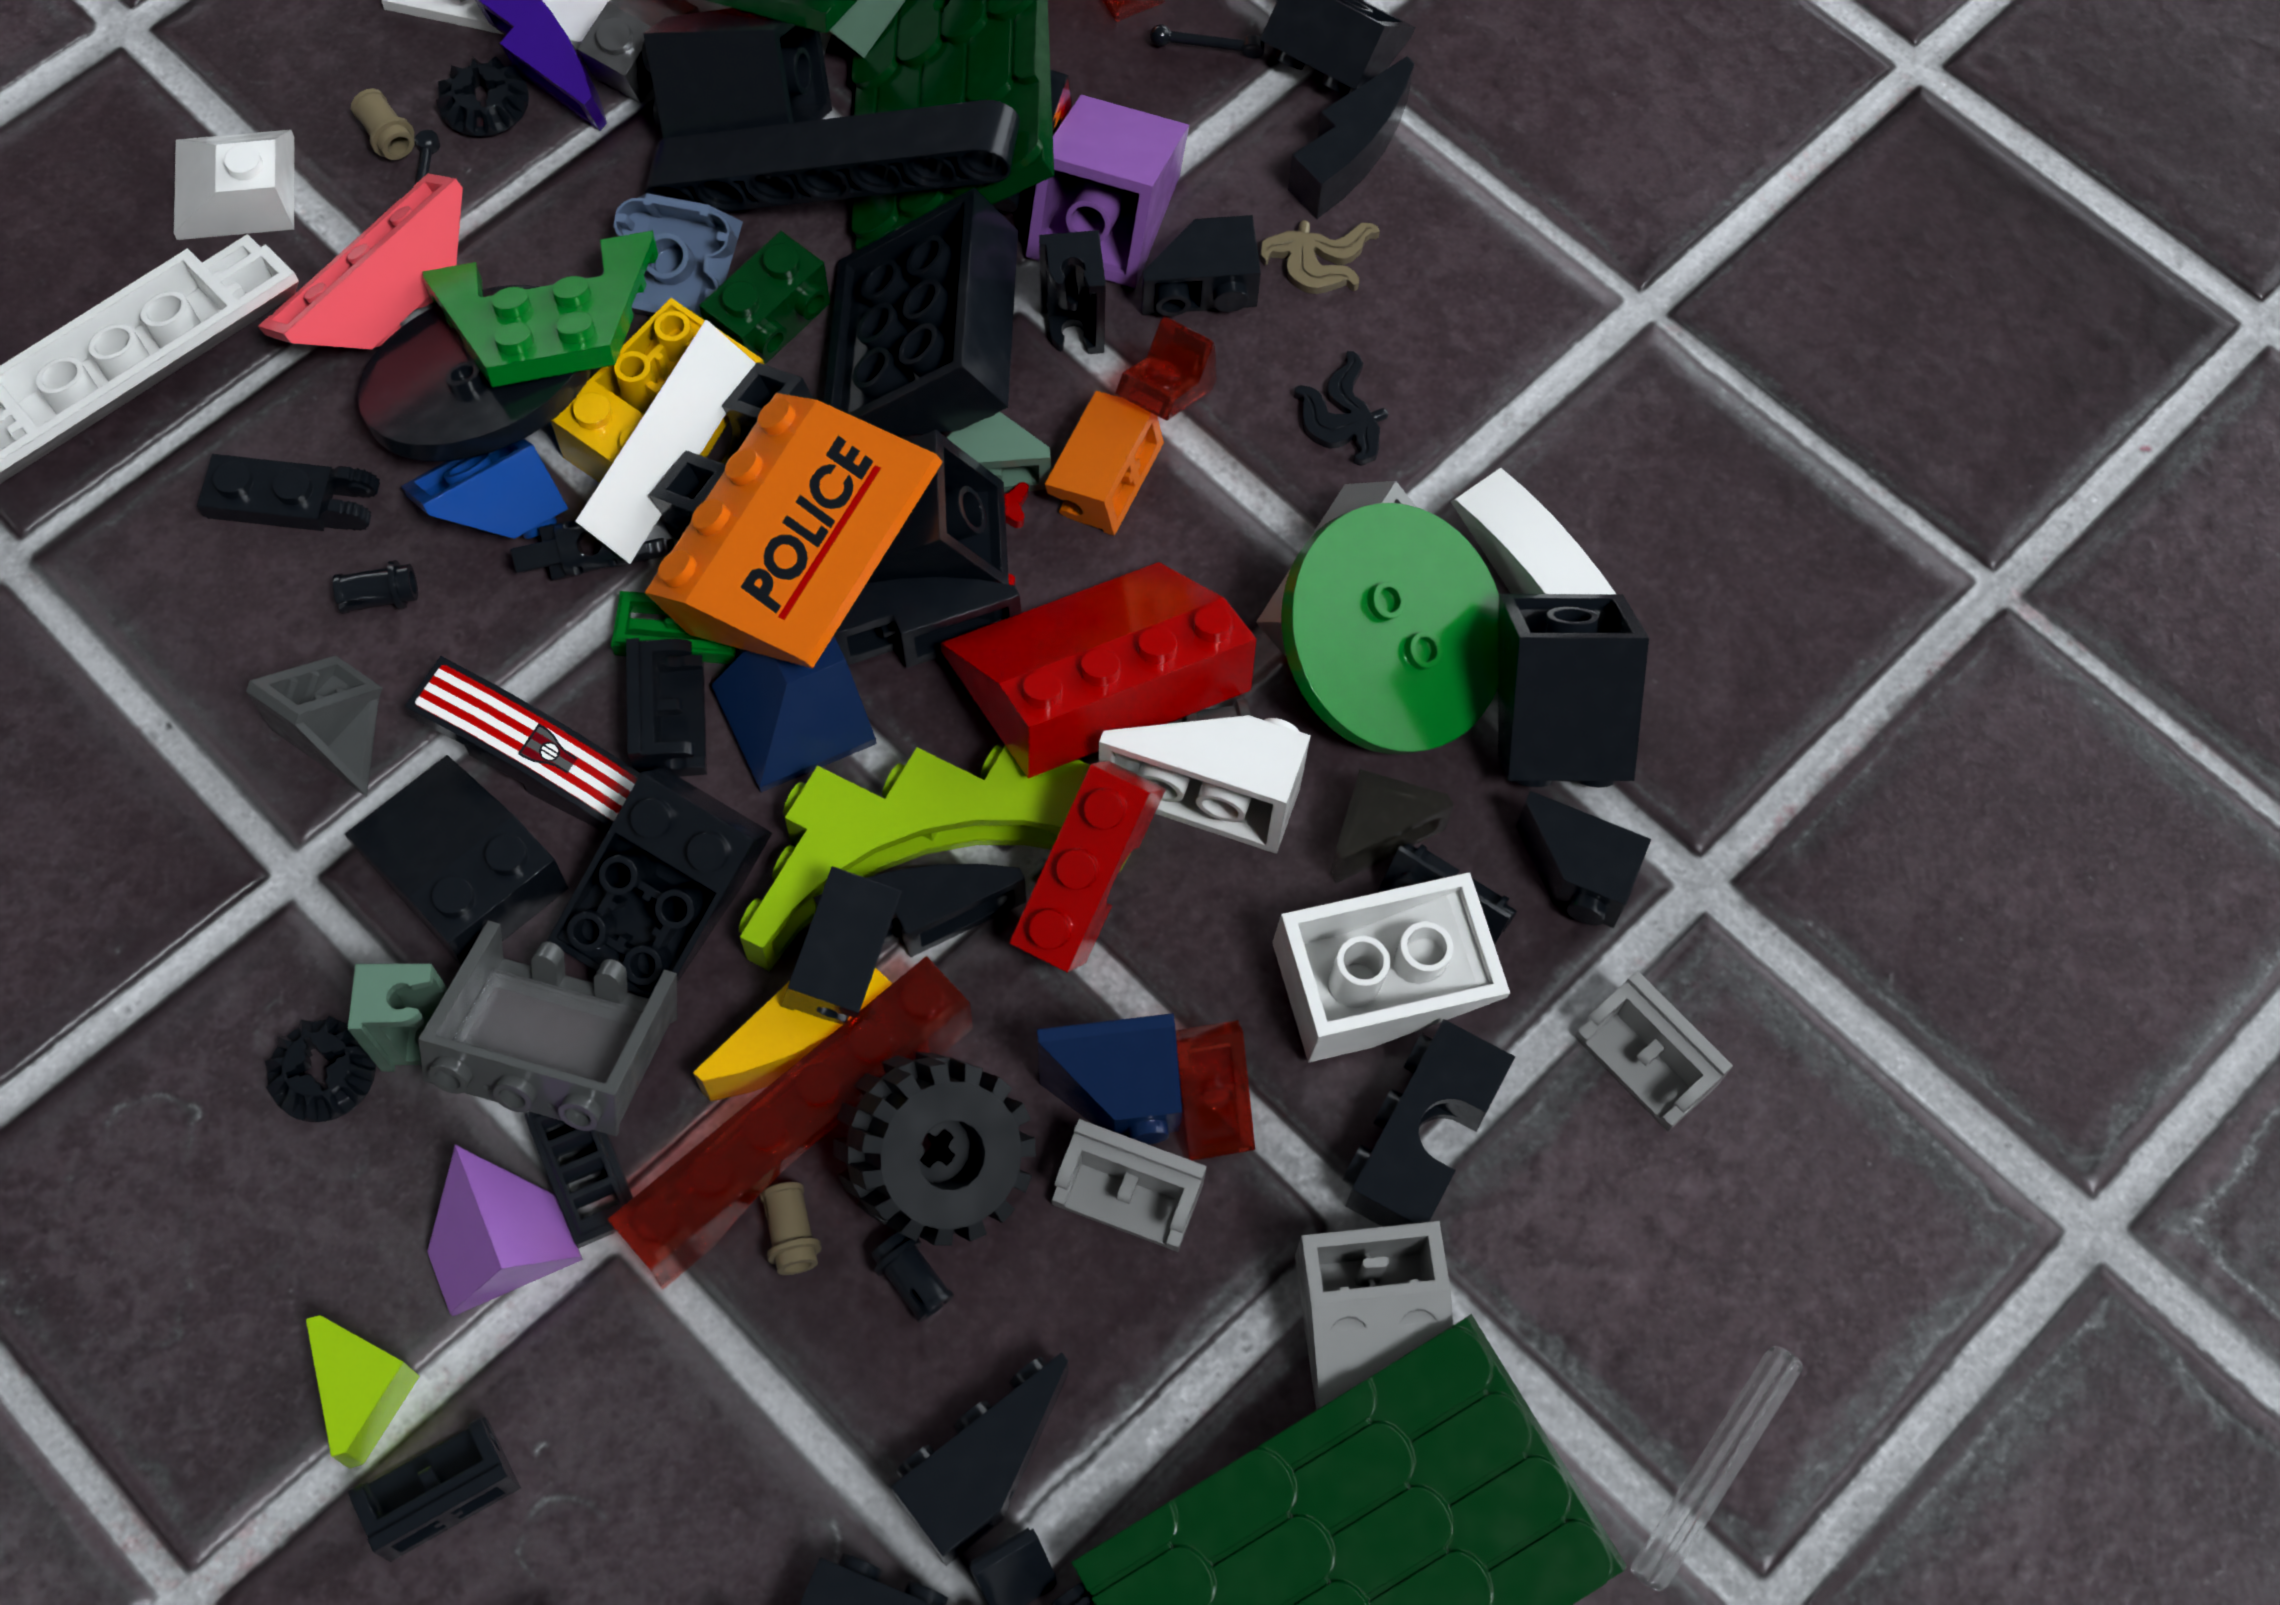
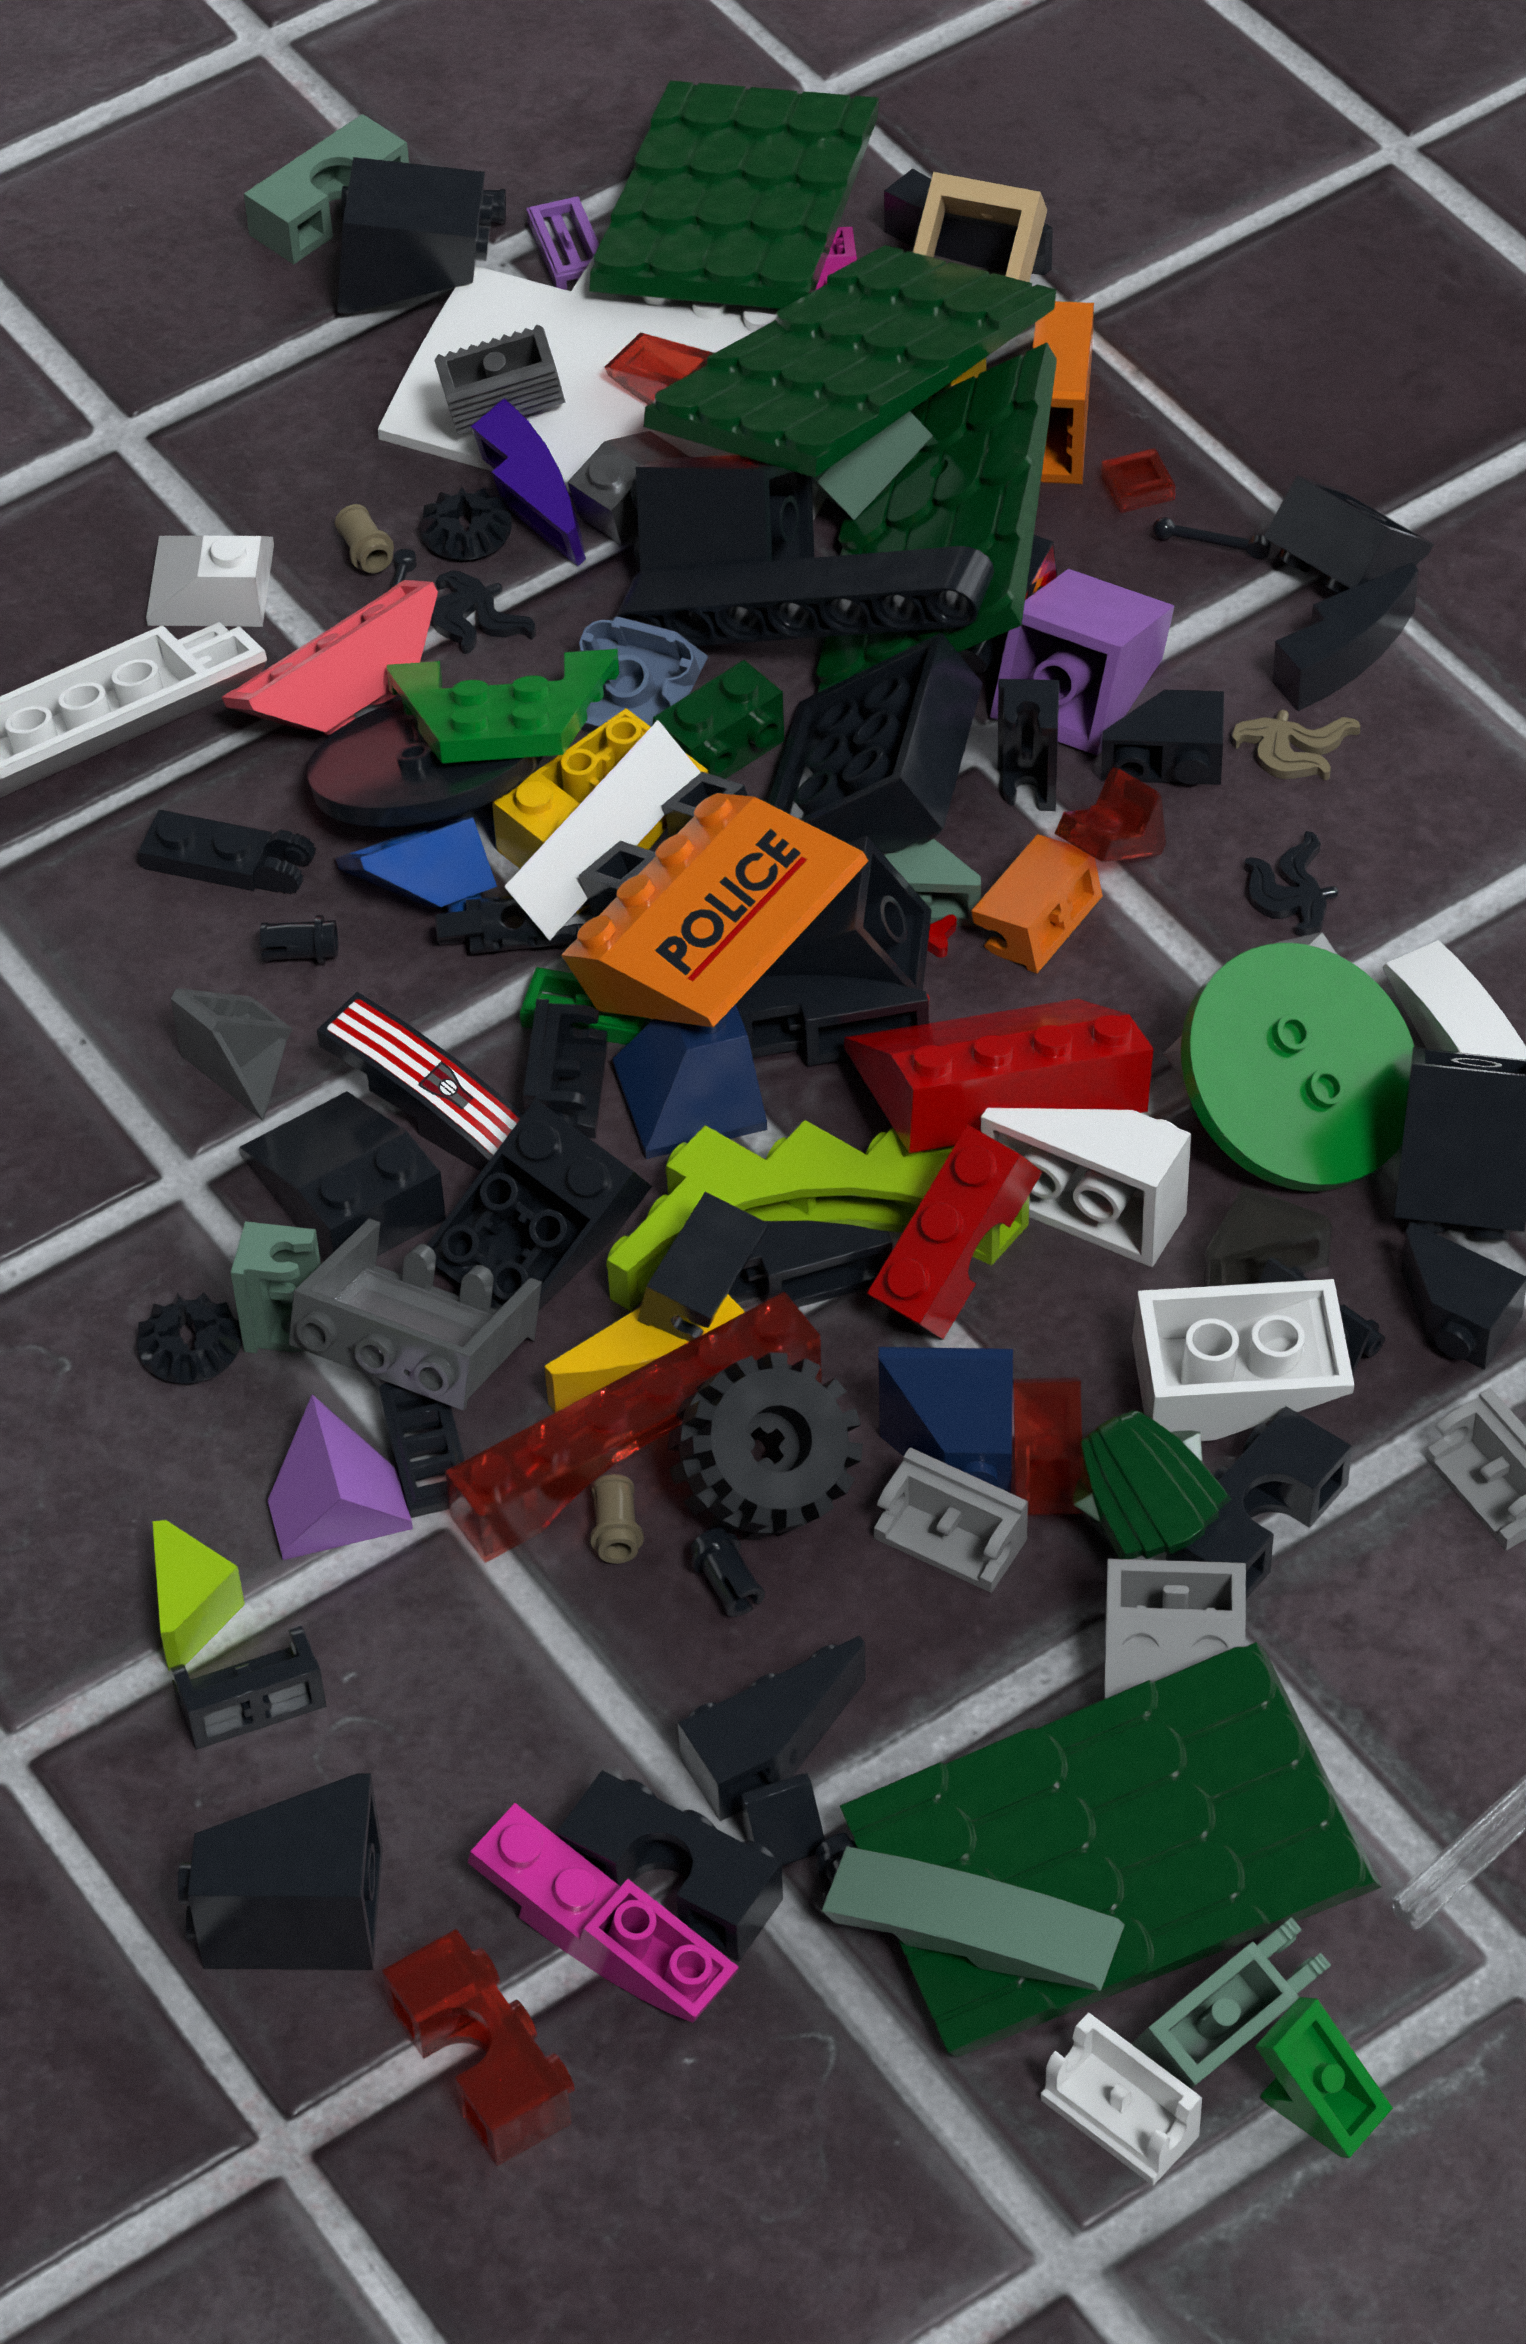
camera: 15 degrees right, 15 degrees down
(496, 176) = (466, 597): none -> black piece
(1324, 1137) = (1147, 1486): none -> dark green hair

